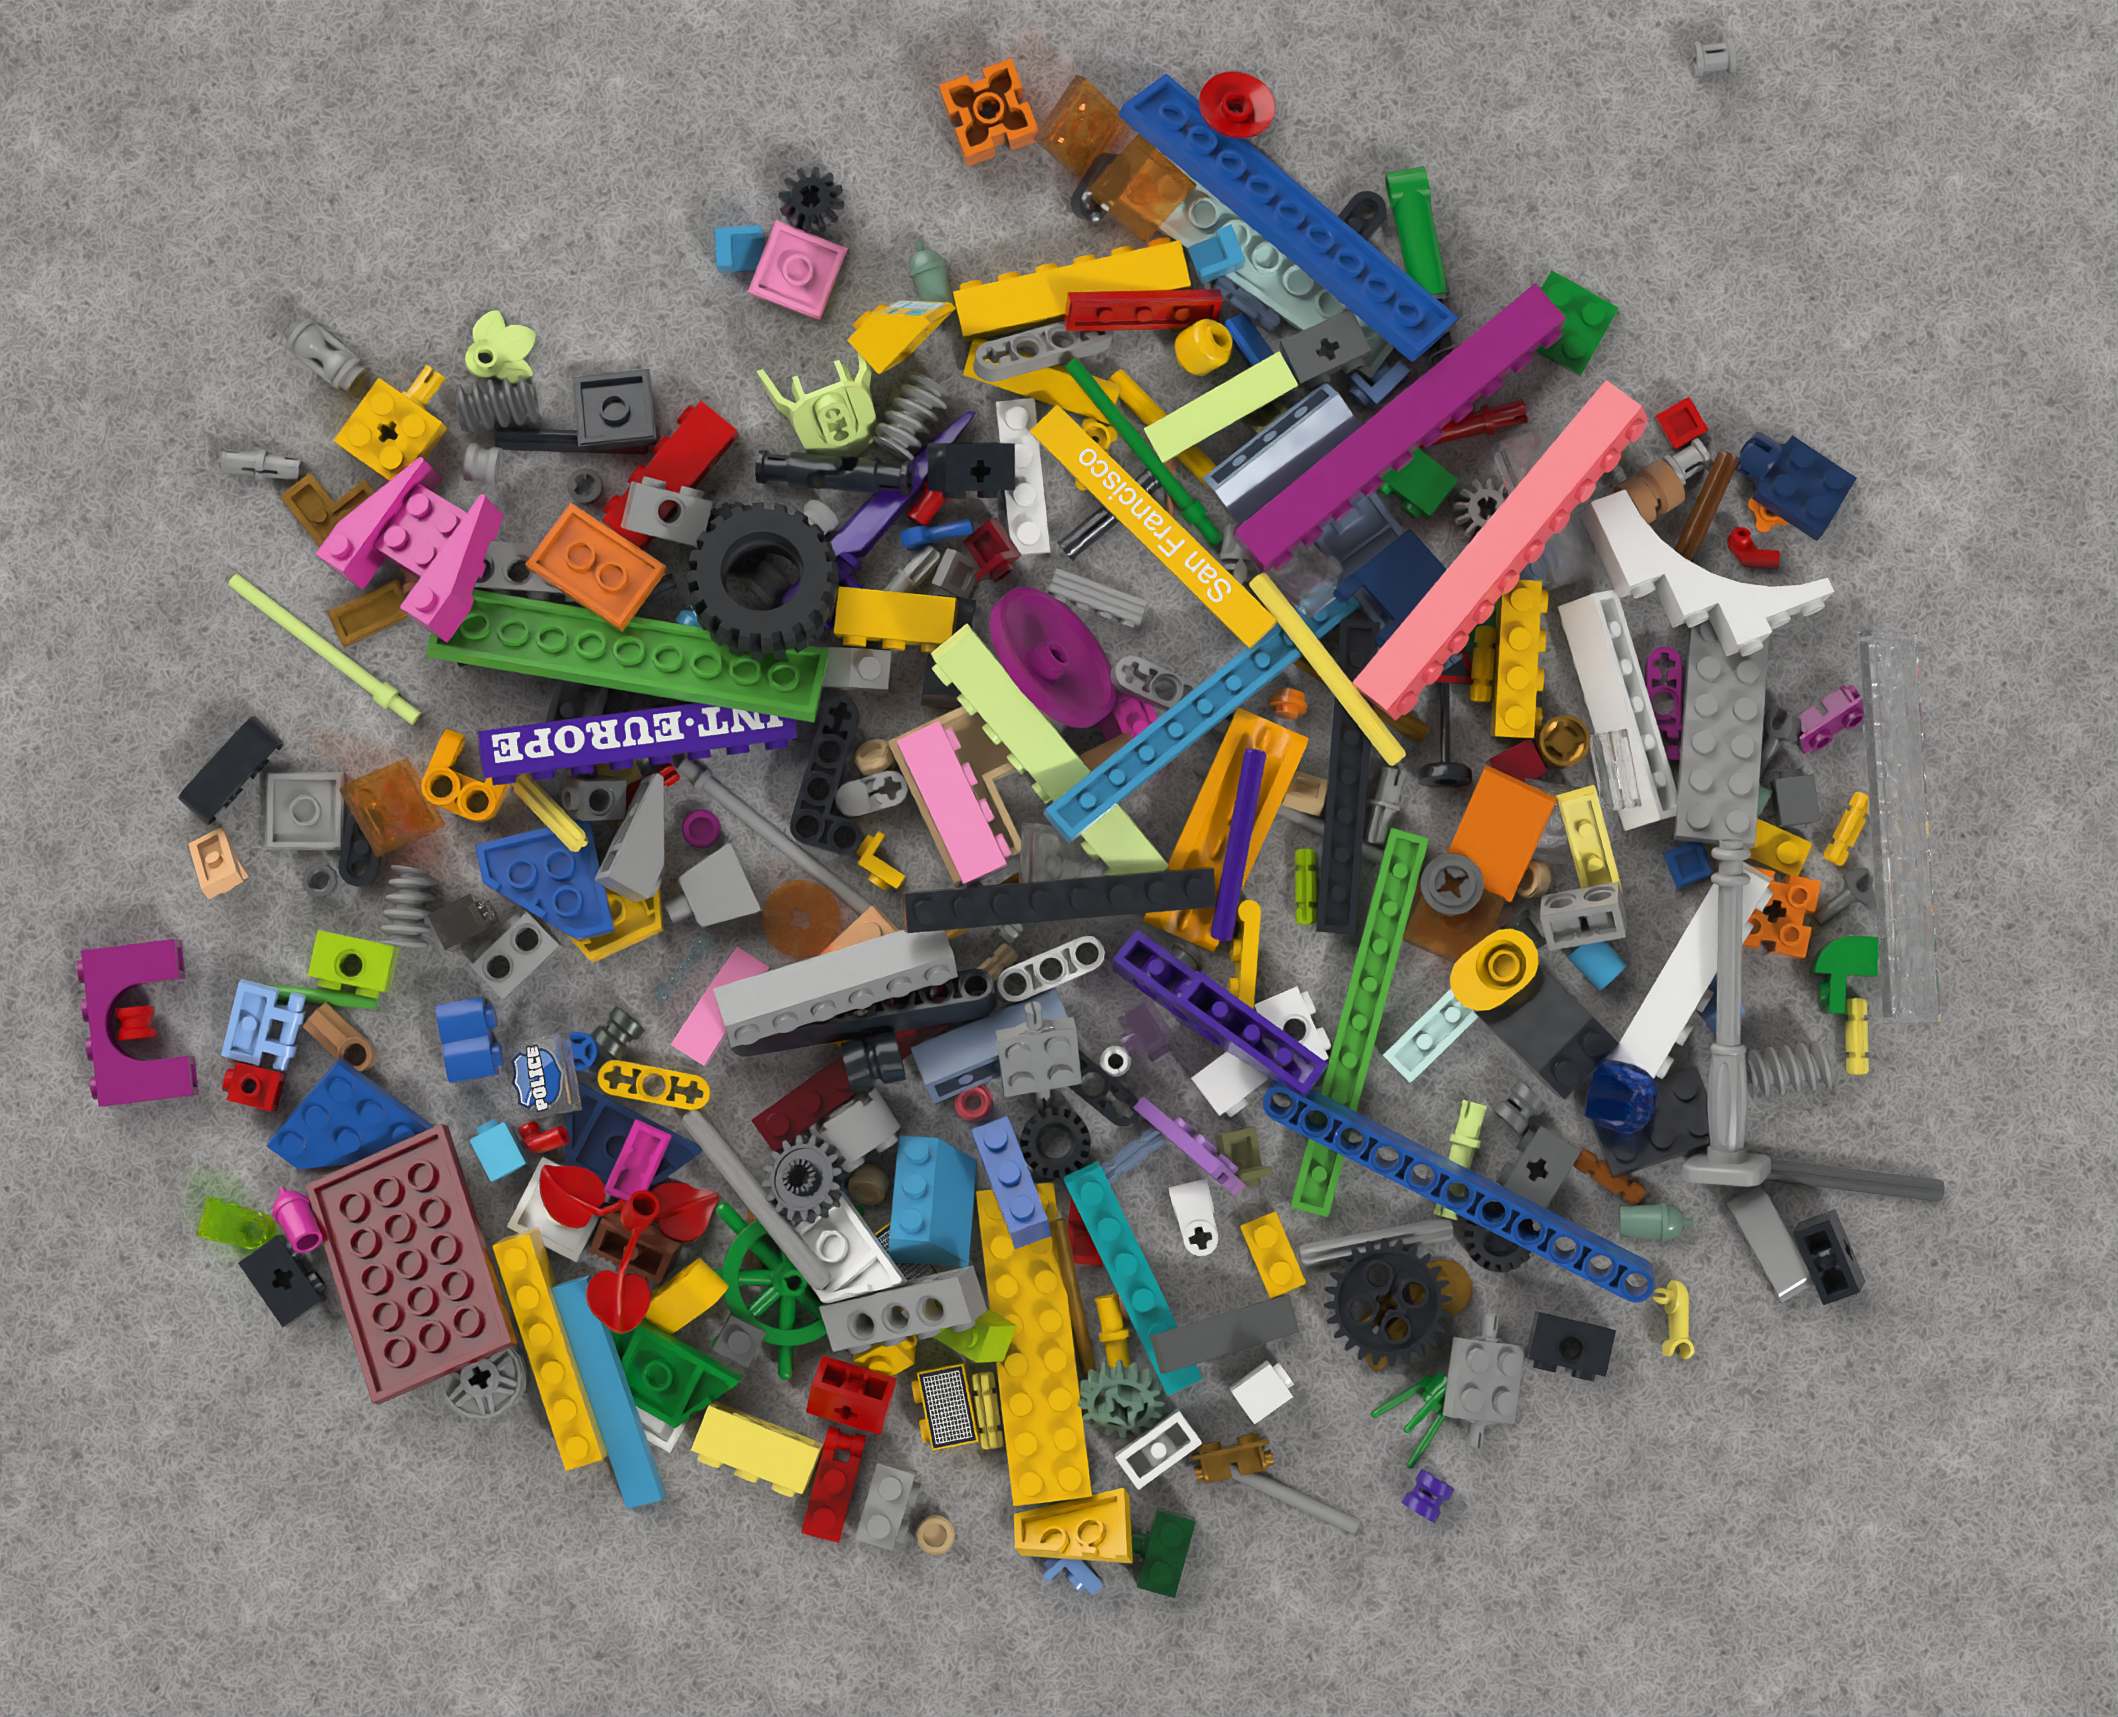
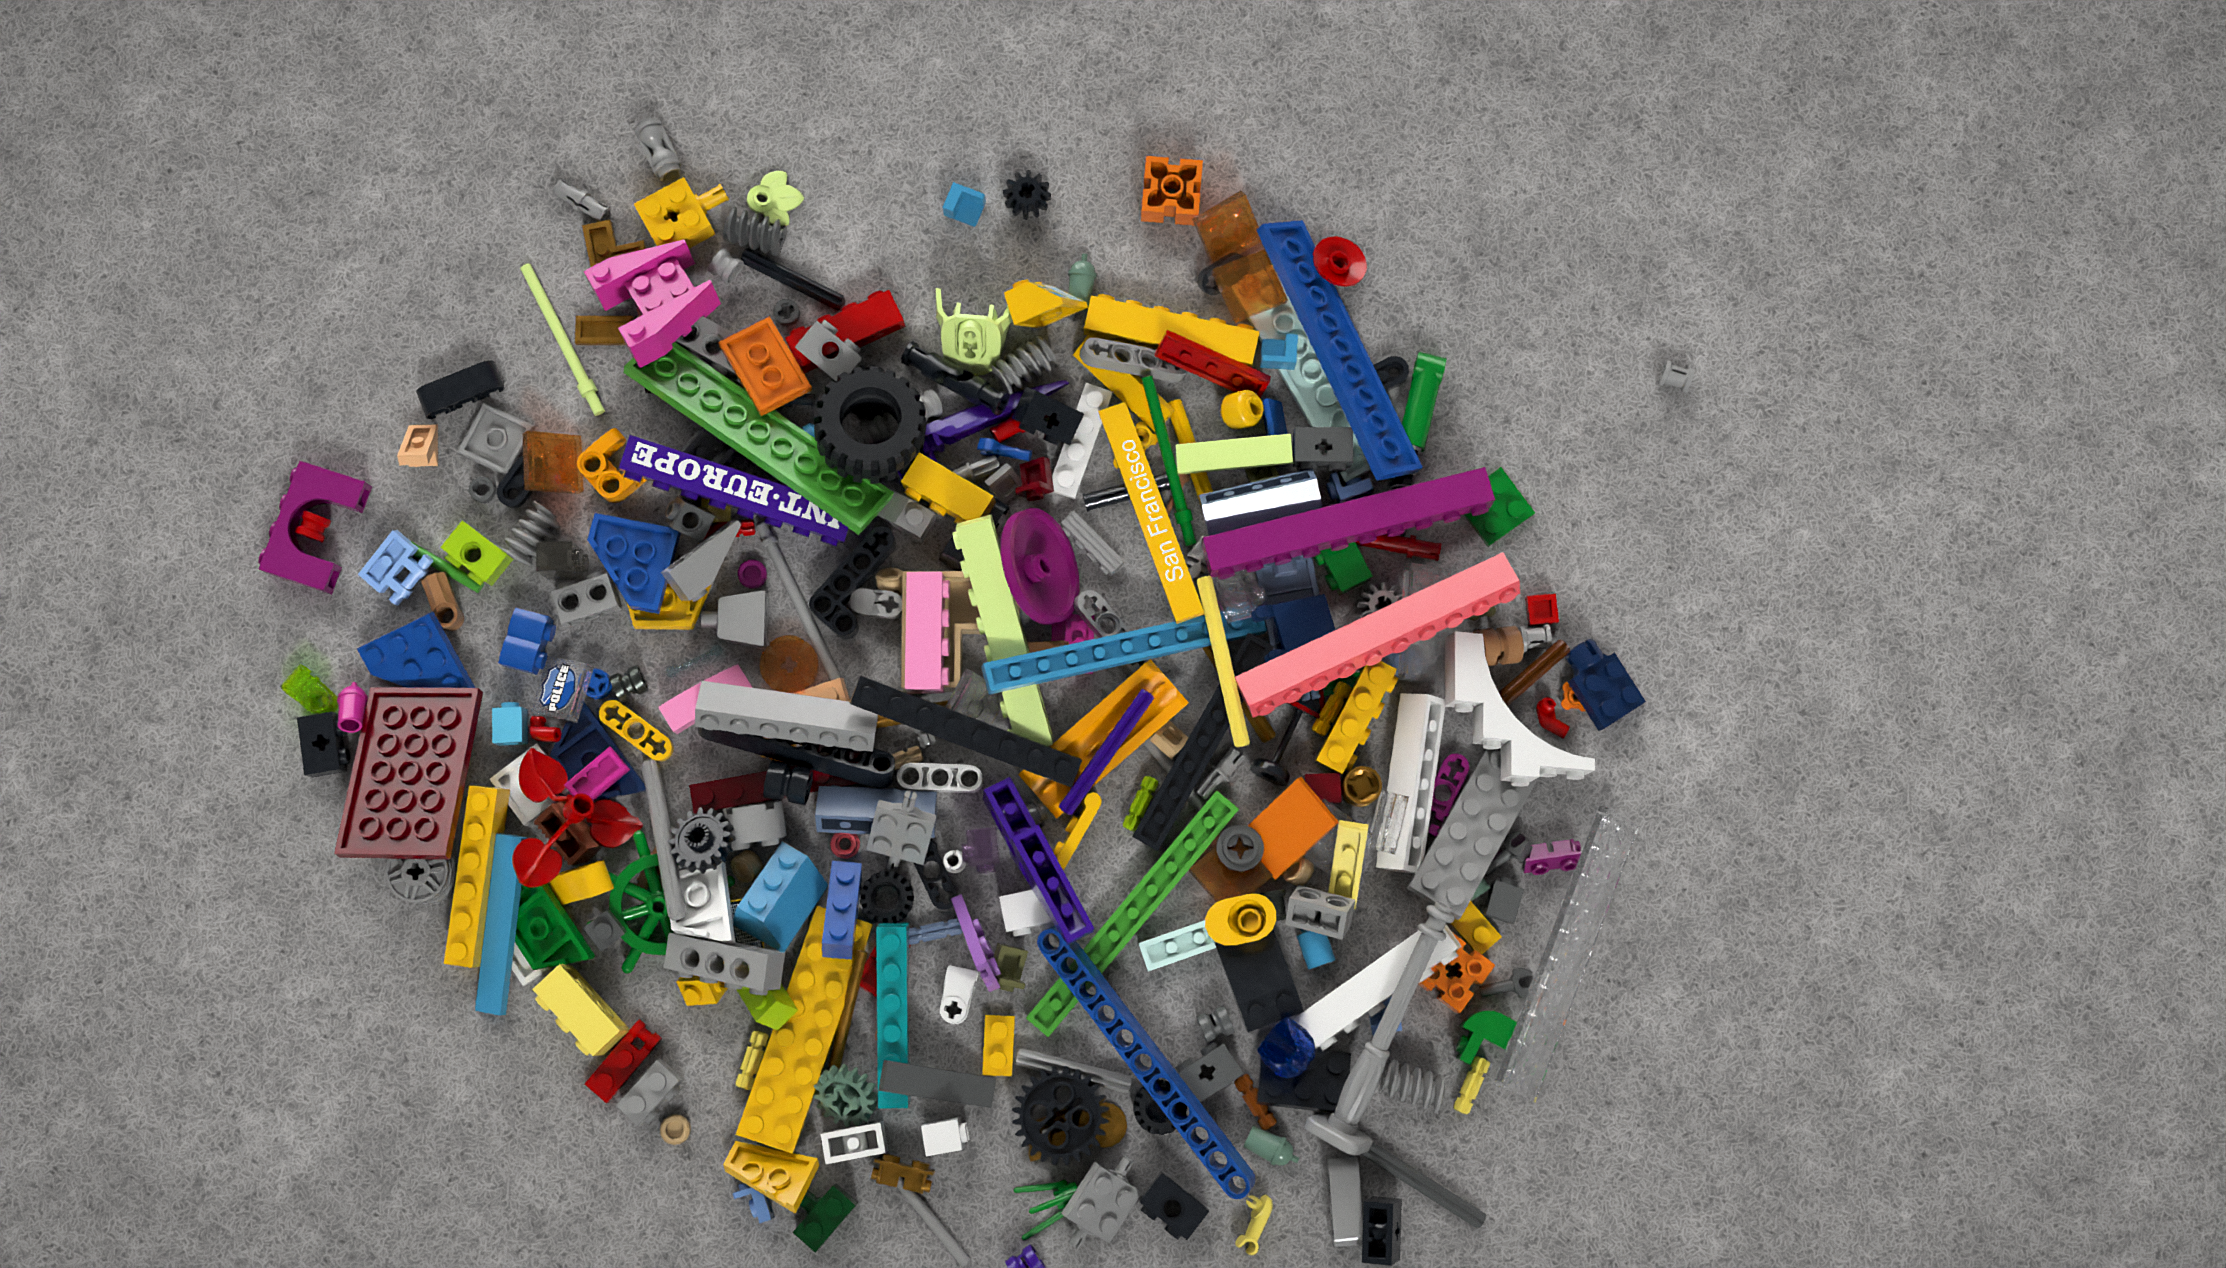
camera: 20 degrees right, 5 degrees down
(267, 1091) = (378, 609): red brick -> none
(550, 812) = (654, 514): light yellow axle -> none
(614, 410) = (829, 271): tile -> none
(797, 270) = (995, 236): bright pink tile -> none
(851, 1395) = (663, 1004): red brick -> none
(881, 873) = (857, 660): yellow bracket -> none
(946, 1406) = (724, 1043): brick -> none
(1113, 1330) = (864, 1046): yellow pin -> none
(1248, 304) = (1286, 396): sand blue axle -> none
(1288, 703) = (1186, 674): orange plate -> none
(1297, 1006) = (1093, 880): white brick -> none
(1463, 1147) = (1164, 1033): yellowish green pin -> none
(1688, 864) = (1409, 910): blue tile -> none
(1847, 830) = (1530, 939): yellow axle -> none

